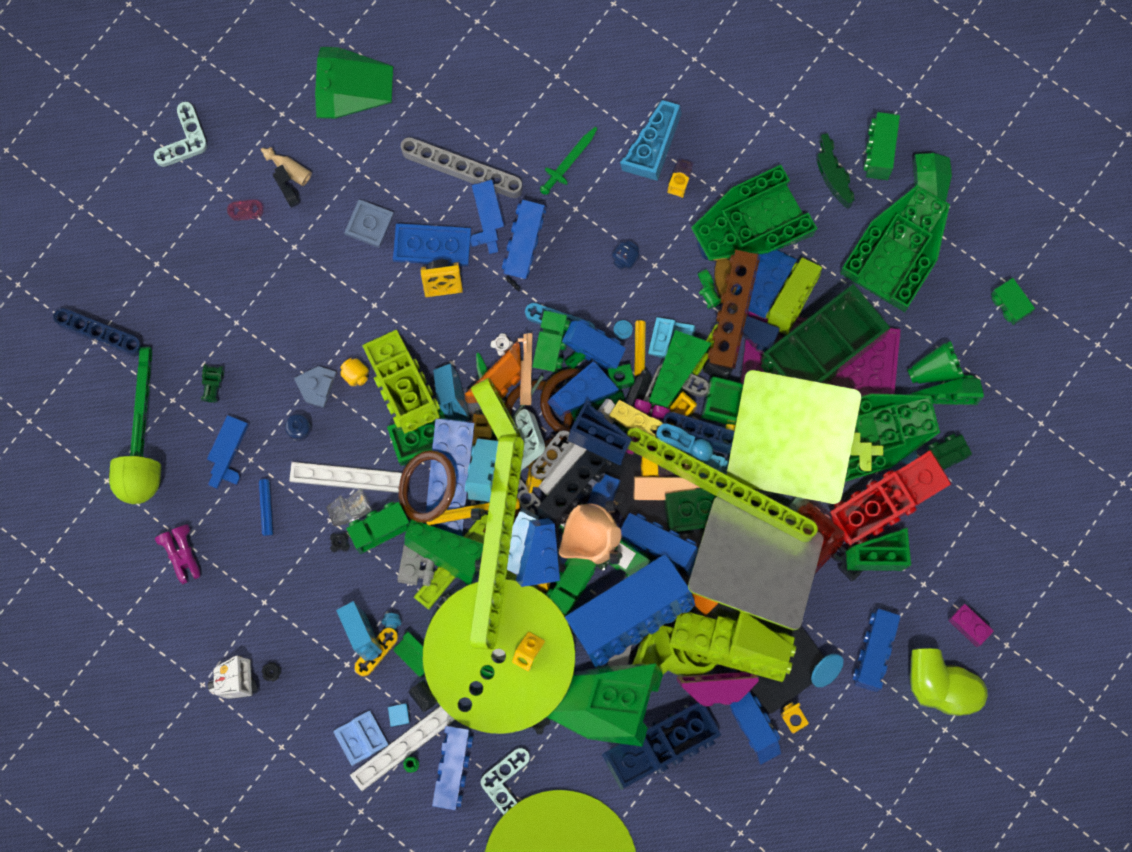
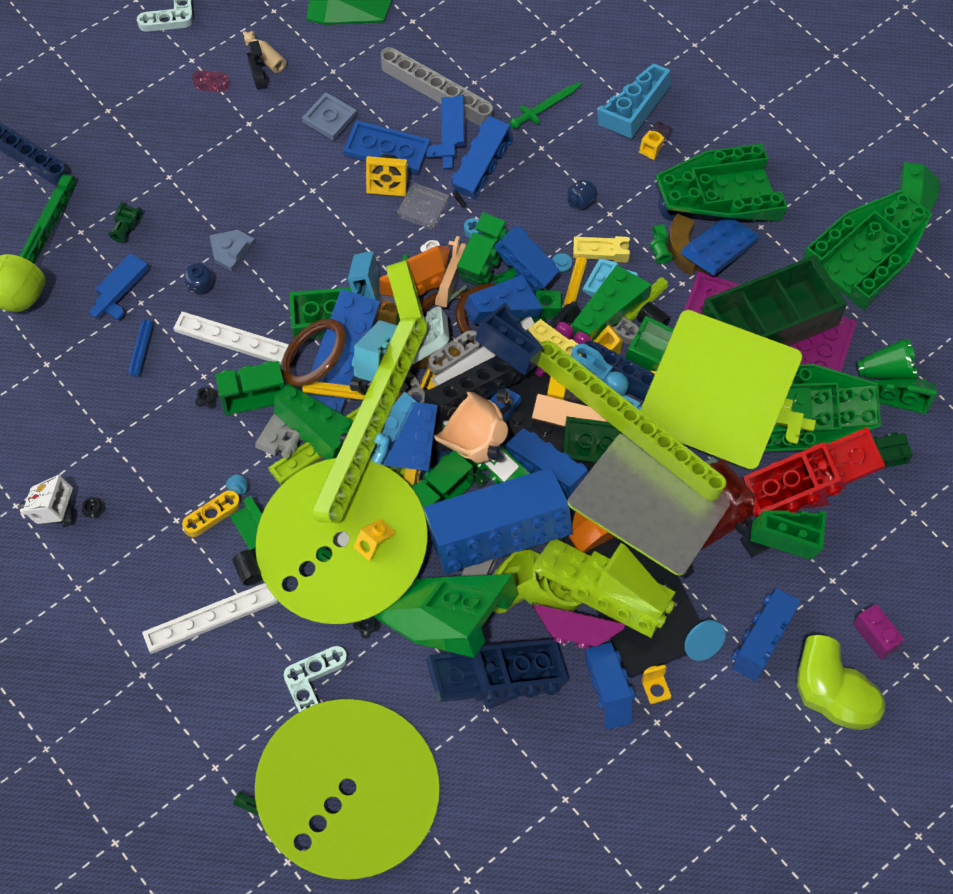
camera: 10 degrees right, 15 degrees down
(180, 558) = (36, 375): magenta piece -> none
(349, 510) = (219, 363): clear slope -> none
(354, 372) = (272, 241): yellow head -> none
(359, 631) = (198, 481): dark azure brick -> none
(360, 738) = (166, 597): light blue slope -> none
(399, 715) = (216, 583): slope -> none
(401, 382) = (317, 255): lime wedge -> none
(412, 769) = (212, 635): green pin -> none
(452, 768) = (257, 647): wedge -> none
(481, 299) = (423, 205): none -> clear tile
(513, 564) = (382, 450): none -> medium azure arm
(655, 307) = (602, 248): none -> light yellow plate
(729, 358) = (666, 301): reddish brown brick -> none
(759, 334) = (695, 282): dark blue slope -> none
(794, 295) = (749, 261): lime wedge -> none
(834, 177) = (814, 168): dark green slope -> none
(881, 146) = (869, 149): green brick -> none

